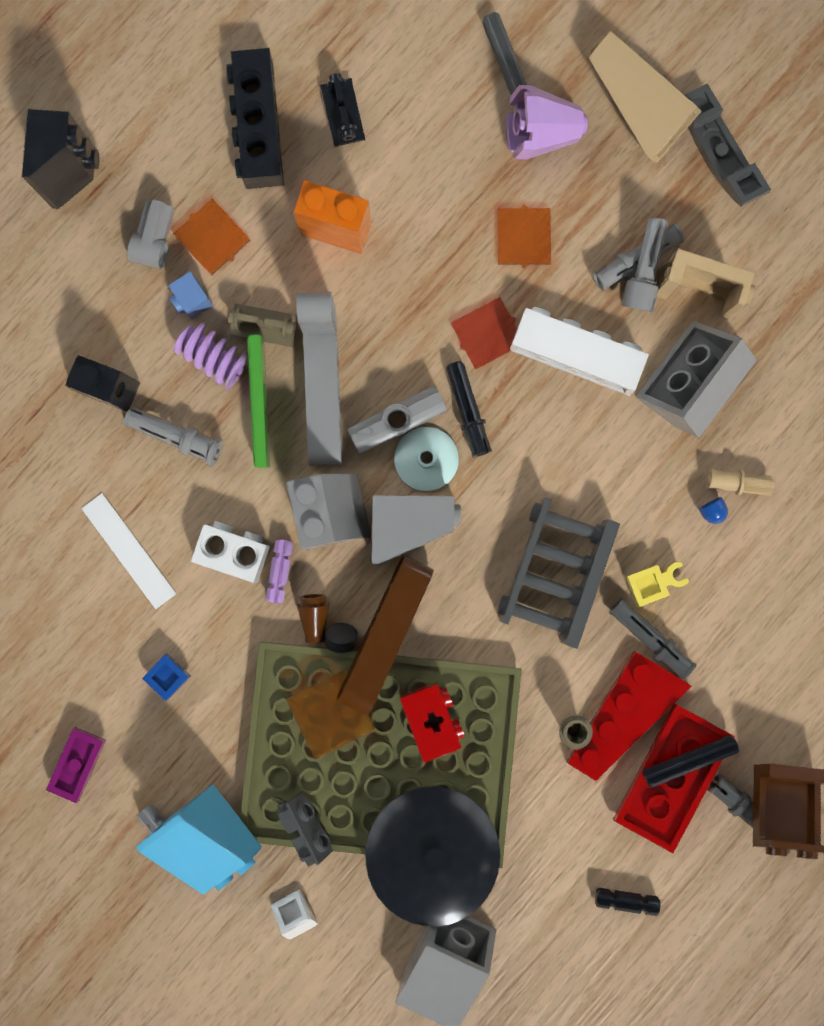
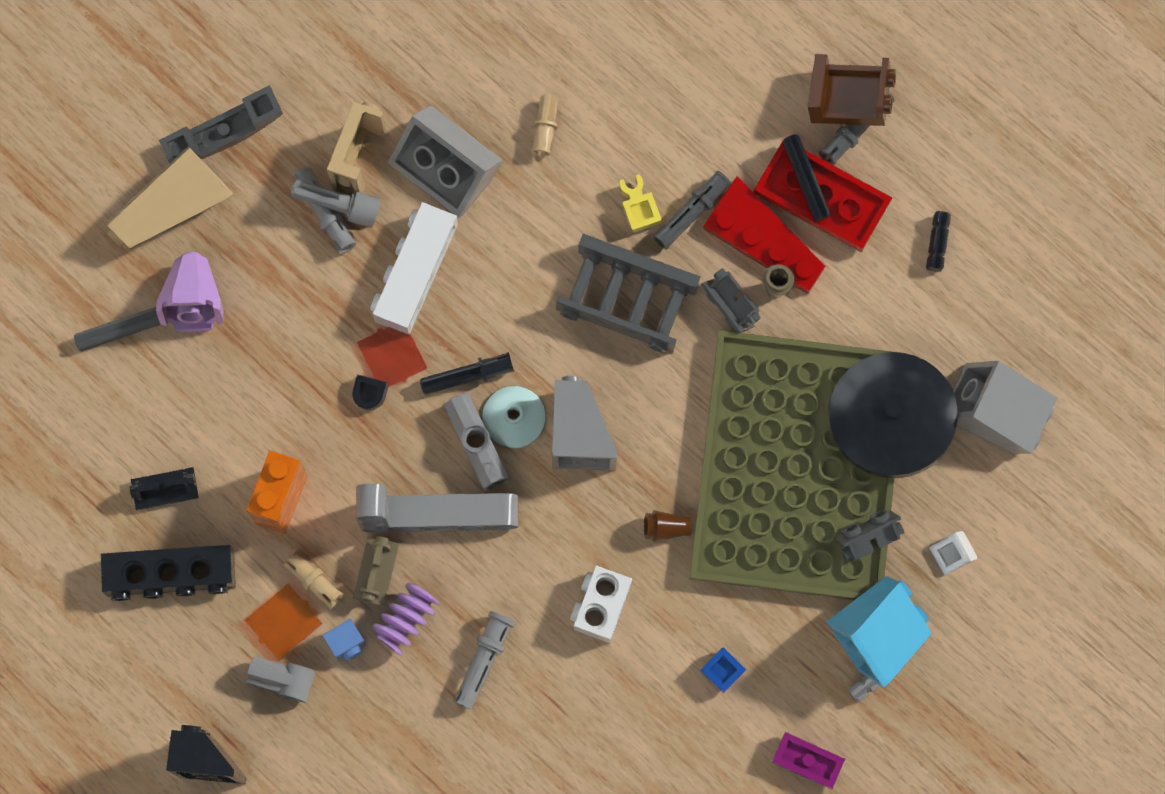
camera: 85 degrees left, 10 degrees down
(101, 383) = (429, 730): black torso -> none
(128, 551) = (597, 710): white sticker -> none
(251, 262) = (313, 580): none -> tan pin
(258, 399) = (454, 573): bright green tile -> none
(279, 571) = (621, 559): lavender axle -> none
(324, 720) = (759, 508): clear orange tile -> none
(328, 510) = (564, 508): light grey slope -> none
(340, 637) = (686, 500): black tile -> none
(385, 635) = (684, 454): reddish brown beam -> none
(432, 741) = (756, 424): red brick -> none
(446, 311) = (369, 392): none -> black tile
(524, 236) = (297, 318): clear orange piece -> none
(563, 671) = (739, 313): none -> dark grey hinge
(714, 511) = (571, 149): blue hinge -> none

